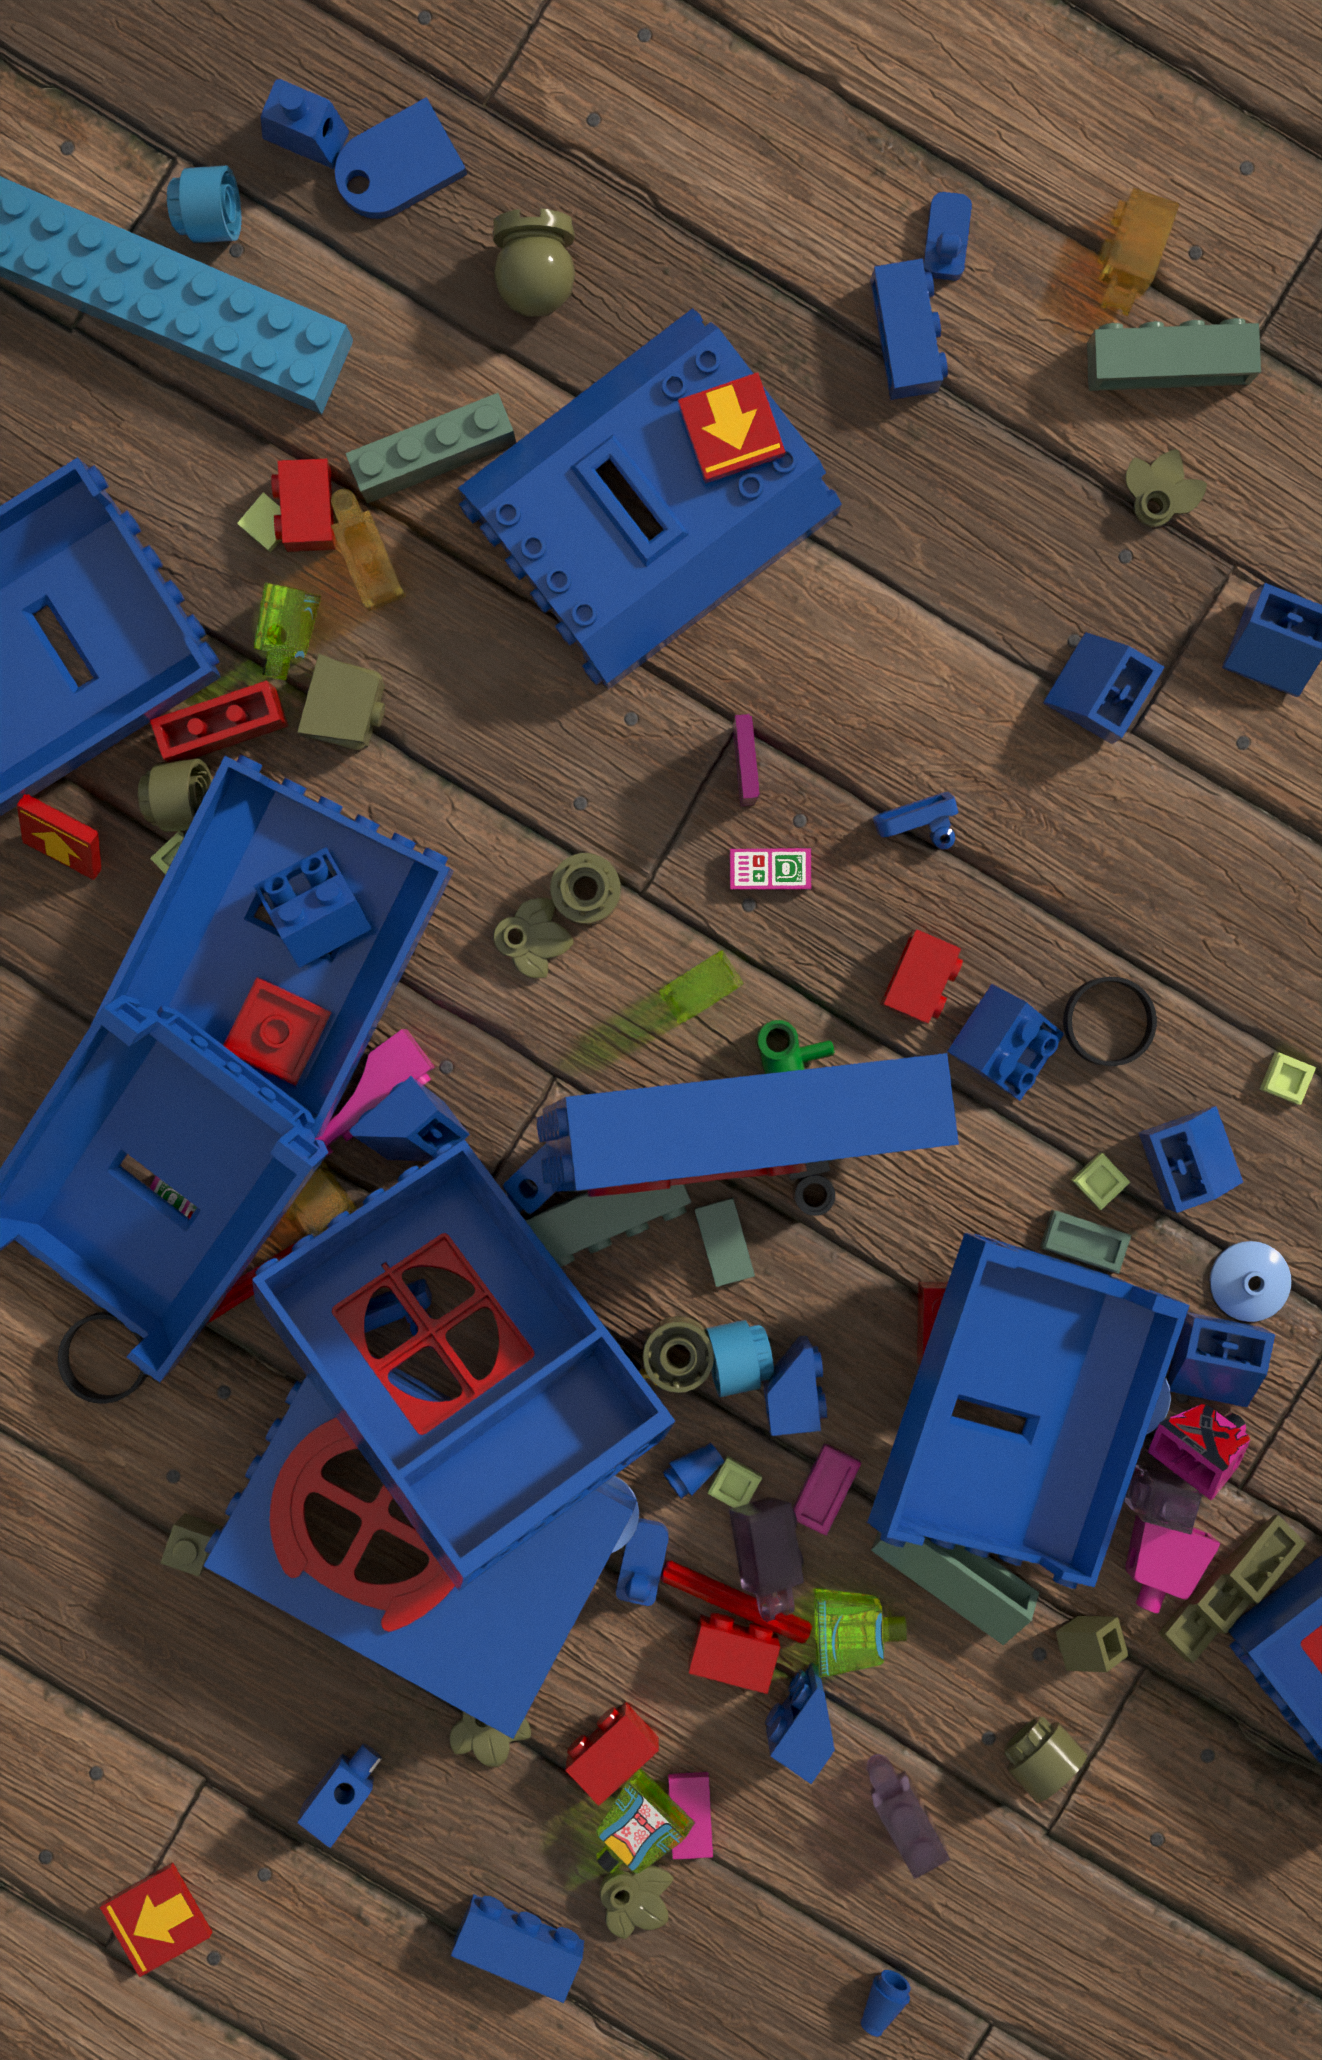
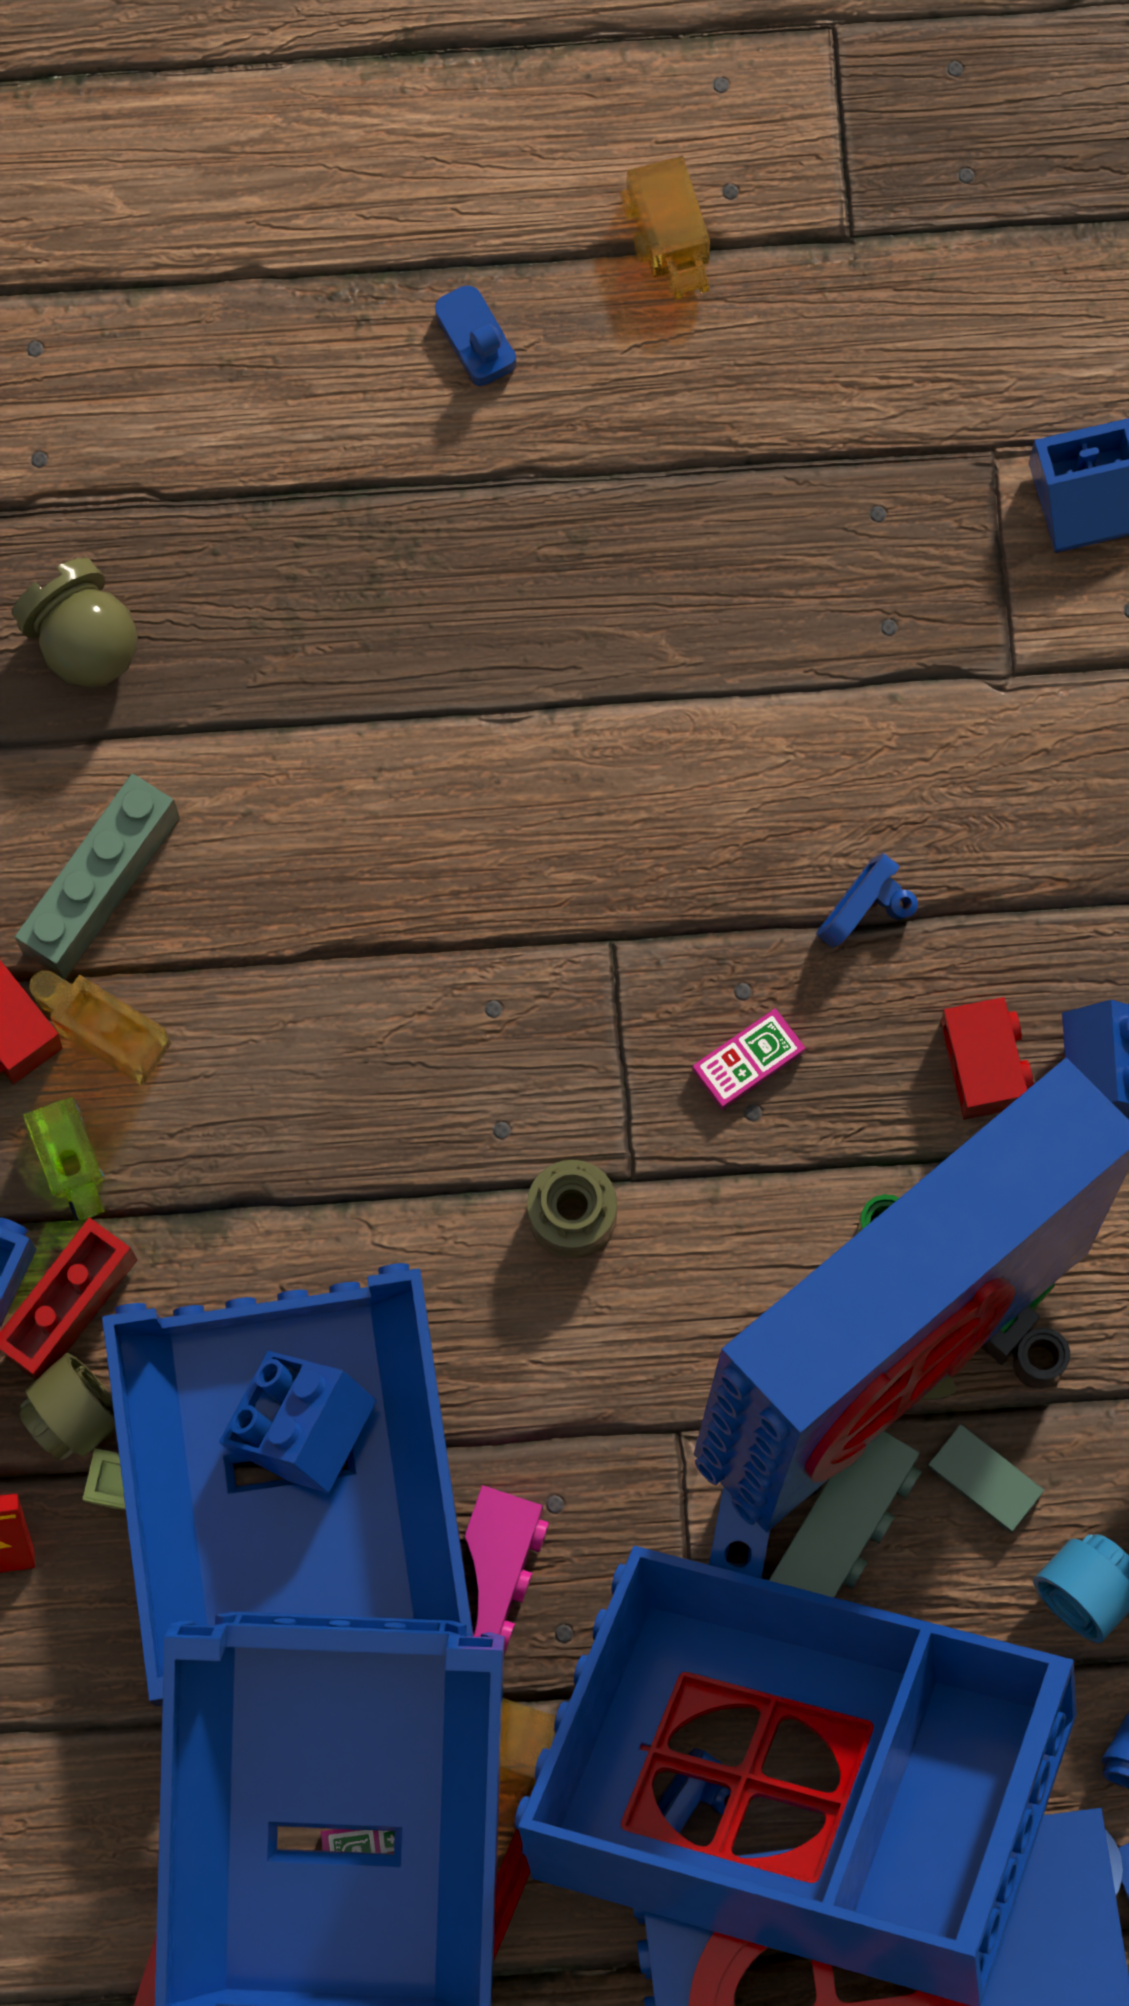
camera: 35 degrees left, 15 degrees down
(276, 1030) = (348, 1573): red tile -> none
(342, 704) = (181, 1195): olive torso -> none
(409, 1124) = (561, 1581): blue slope -> none
(538, 939) = (558, 1296): olive plate -> none
(584, 550) = (383, 690): blue panel -> none
(680, 1376) = (1034, 1597): olive piece -> none
(701, 987) = (764, 1227): clear neon green torso -> none
(731, 427) = (399, 642): red tile -> none
(745, 760) = (645, 961): magenta tile -> none
(908, 328) = (501, 444): blue brick -> none
(1103, 686) = (951, 647): blue slope -> none
(1165, 485) = (865, 420): olive plate -> none
(1173, 355) = (781, 296): sand green brick -> none

